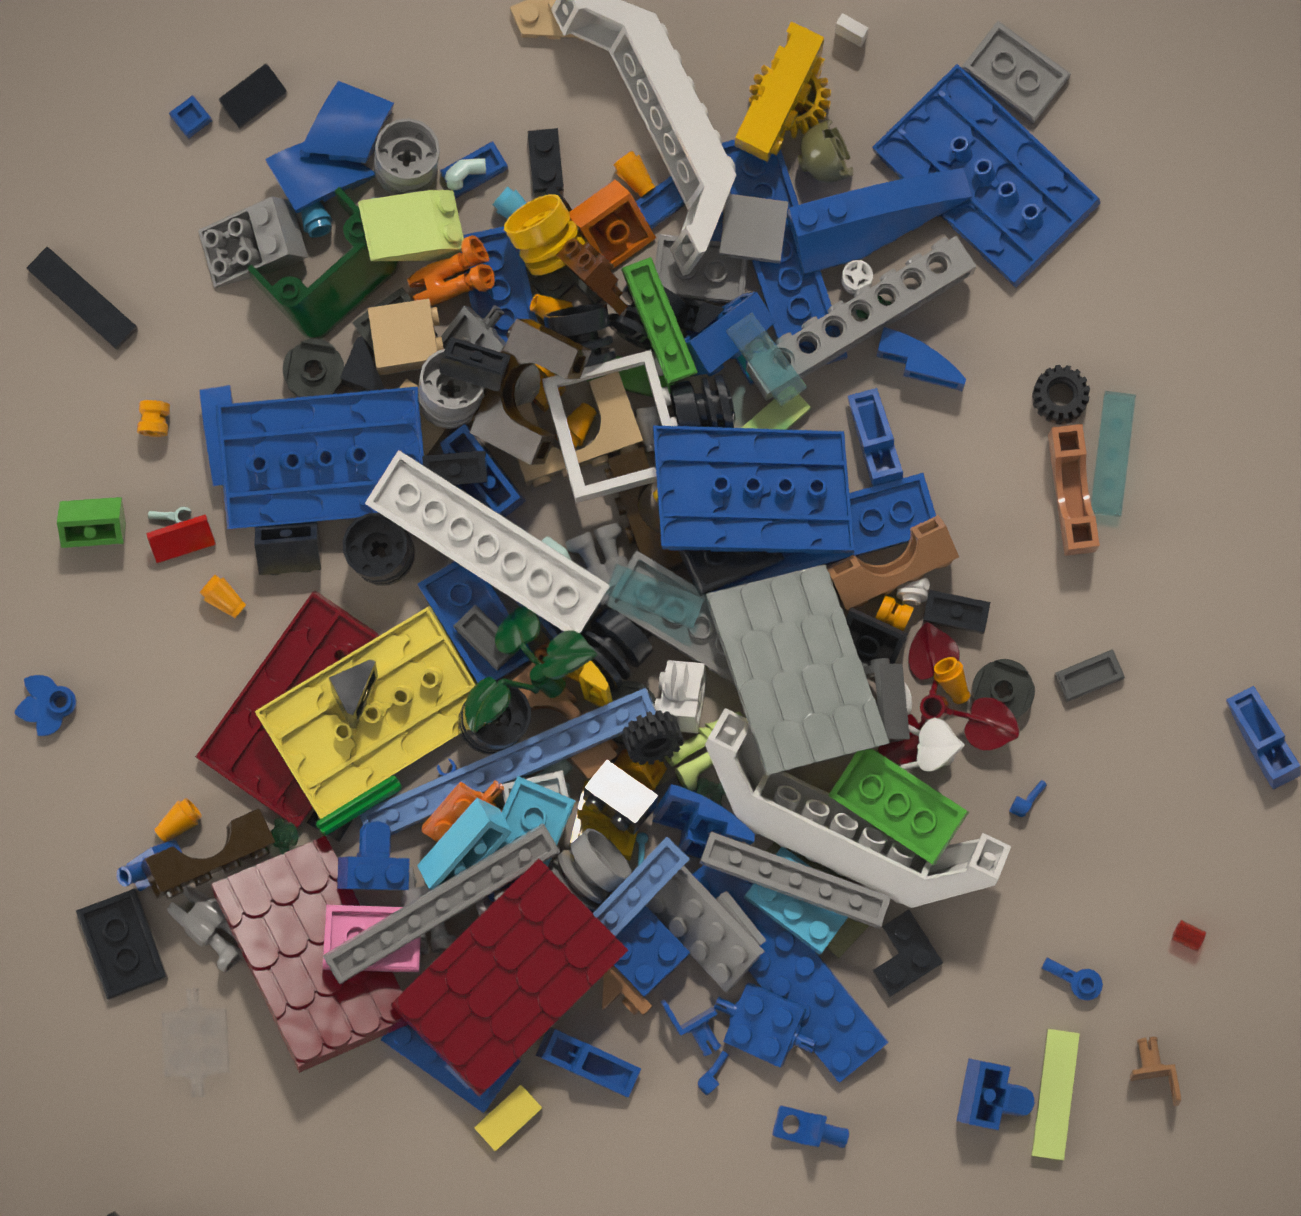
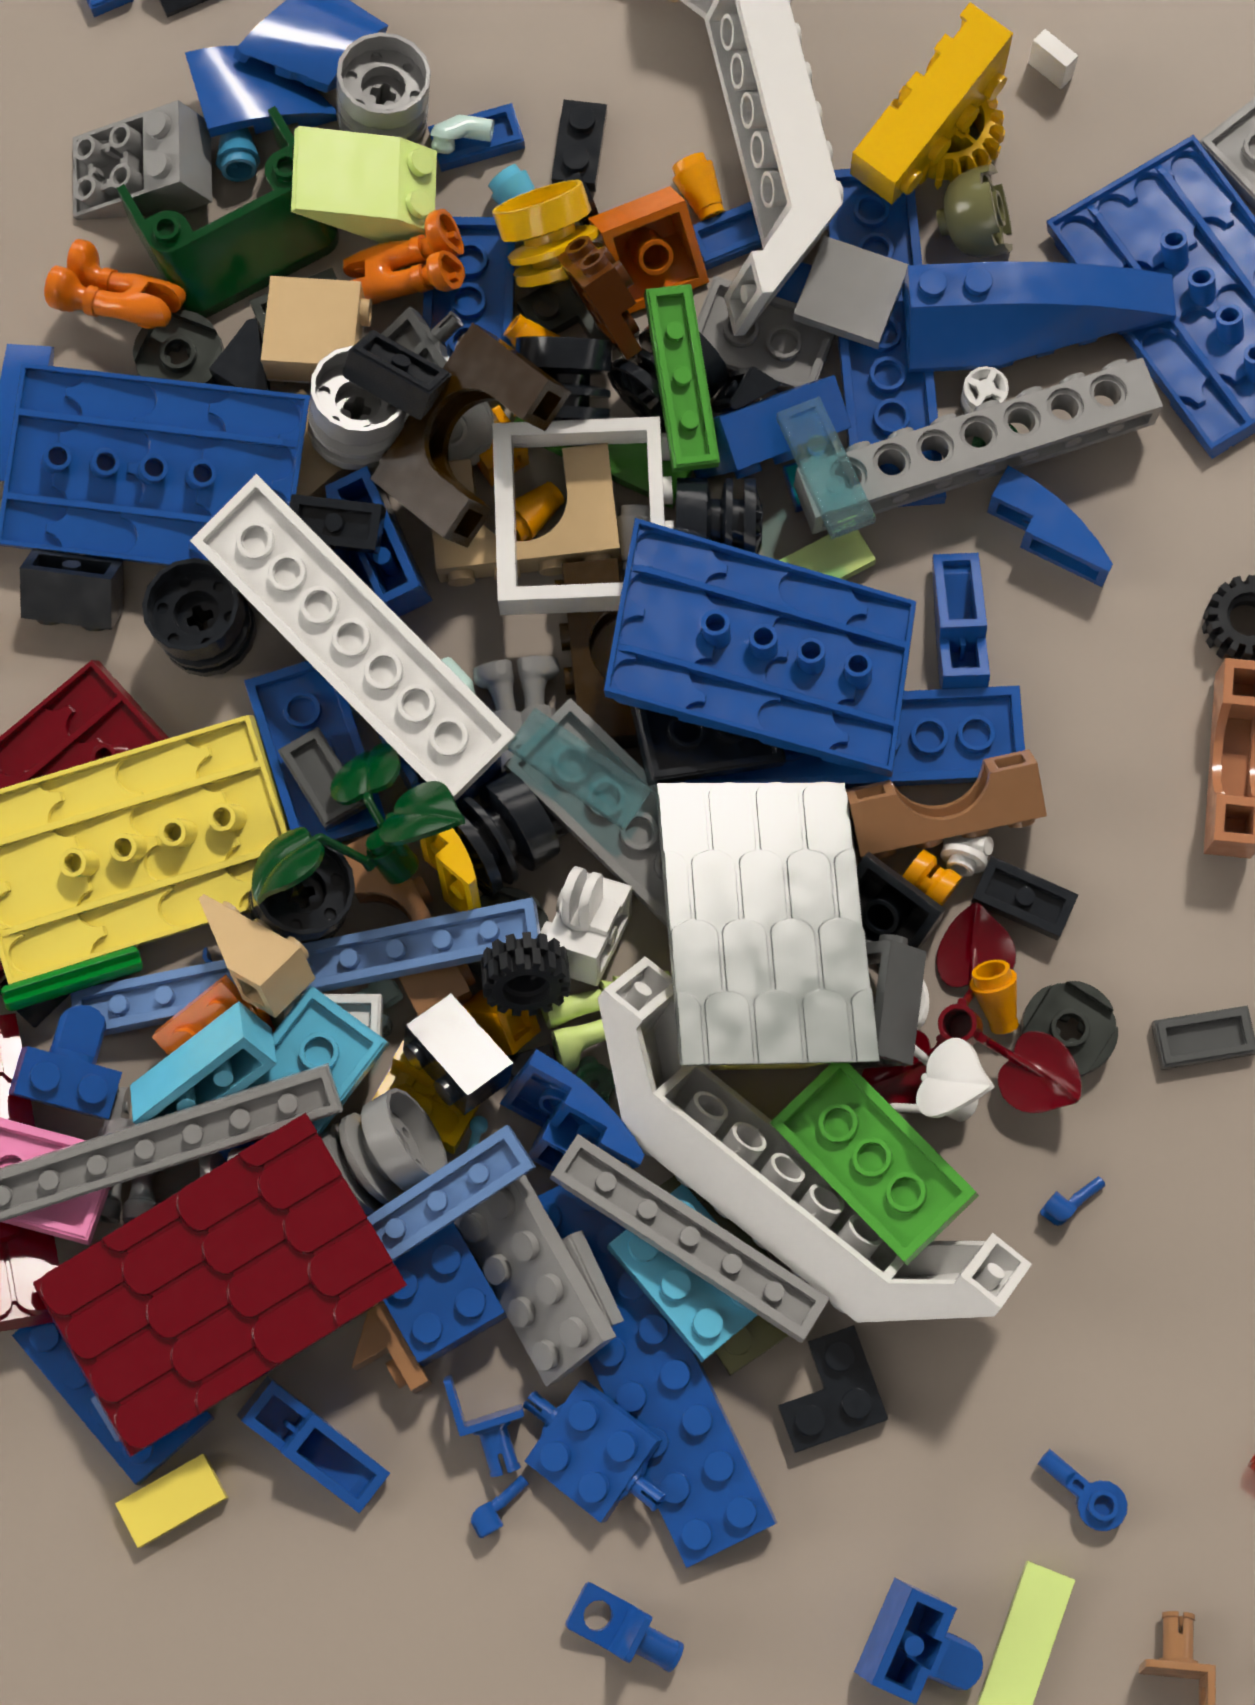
camera: 15 degrees right, 5 degrees down
(259, 338) = (109, 292): none -> orange piece
(353, 690) = (105, 803): black slope -> none
(483, 769) = (263, 964): none -> tan slope

